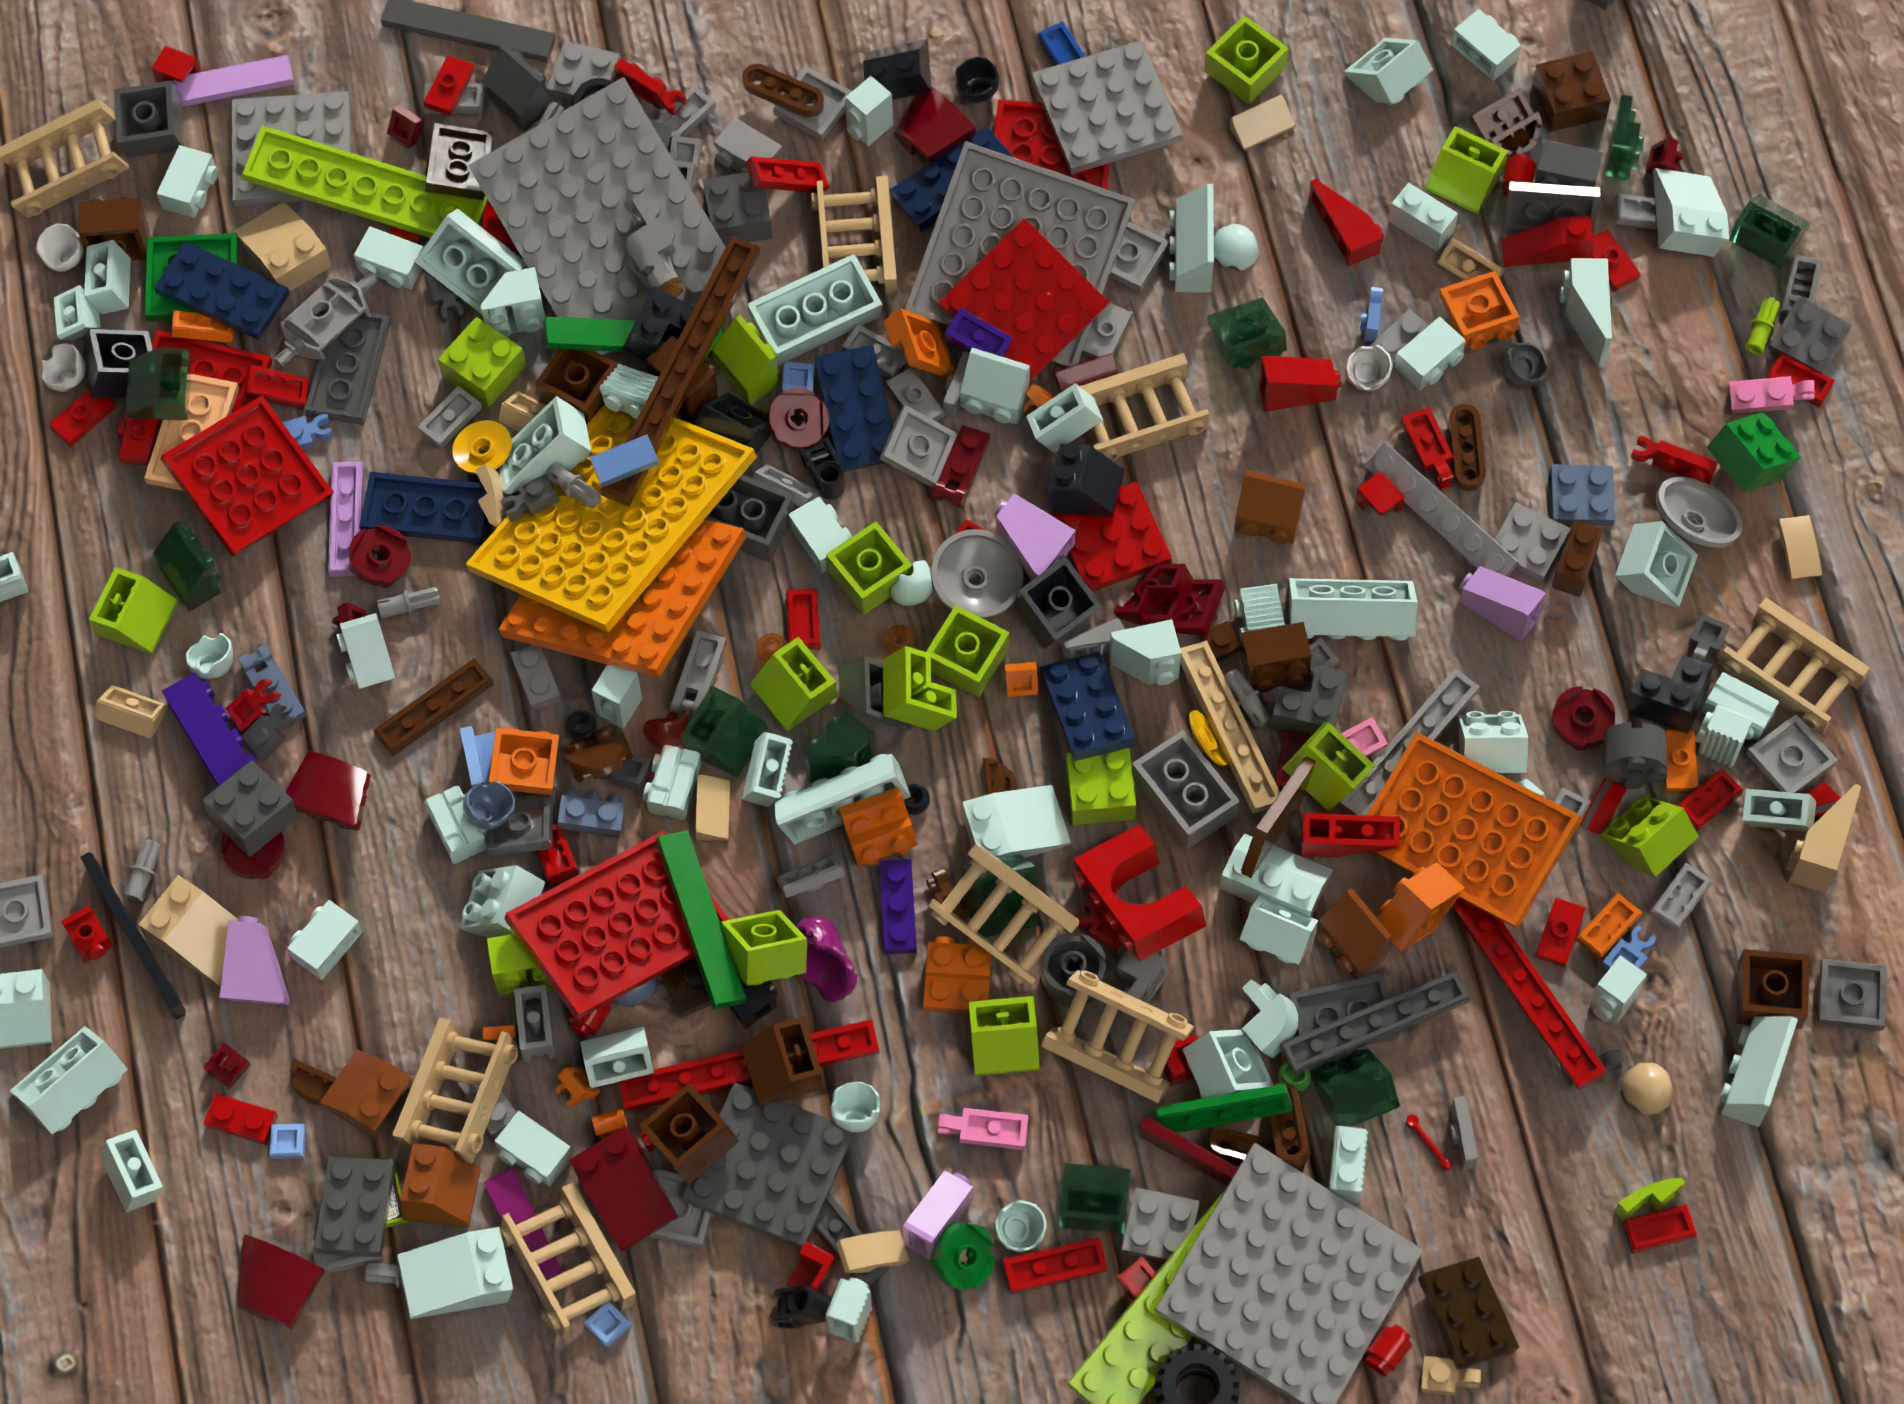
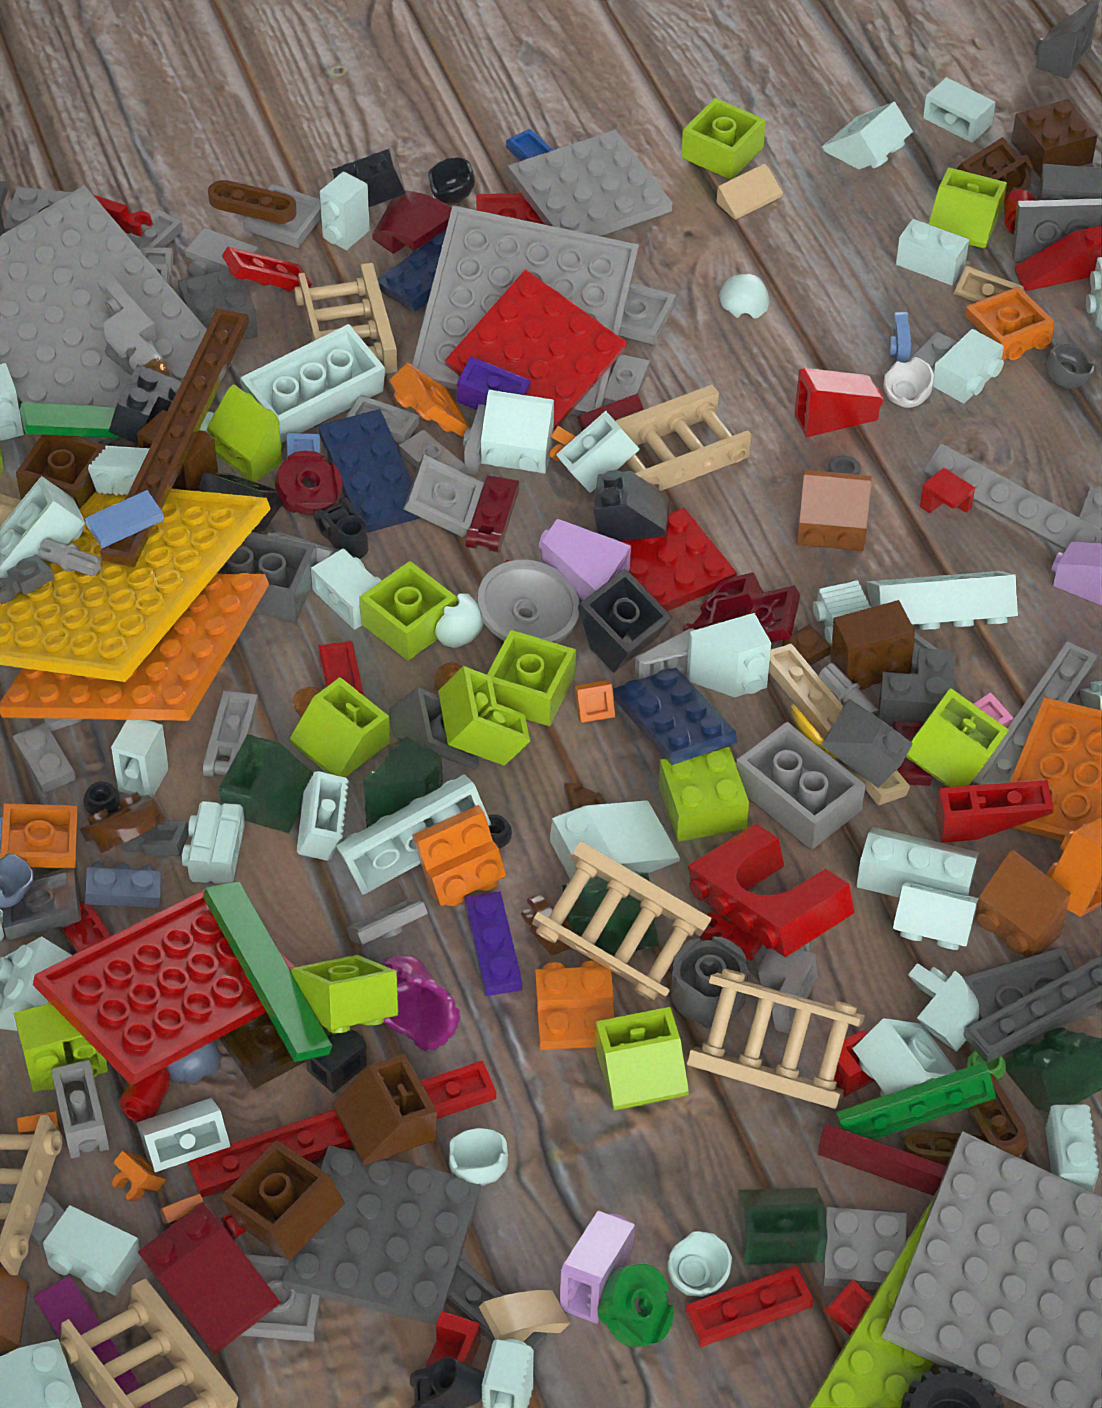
camera: 10 degrees left, 15 degrees down
(666, 731) = (202, 788): clear red hair -> none
(712, 808) = (263, 866): tan slope -> none
(986, 1128) = (637, 1163): bright pink plate -> none
(1193, 241) = (702, 290): light aqua slope -> none
(1248, 333) = (773, 365): clear green plate -> none
(1250, 757) = (866, 743): none -> dark grey slope
(1278, 817) = (912, 792): tile -> none
(1291, 455) = (845, 465): none -> dark grey tile
(1347, 224) = (856, 266): red slope -> none
(1429, 445) = (987, 444): red plate -> none
(1467, 437) = (1023, 432): reddish brown plate -> none

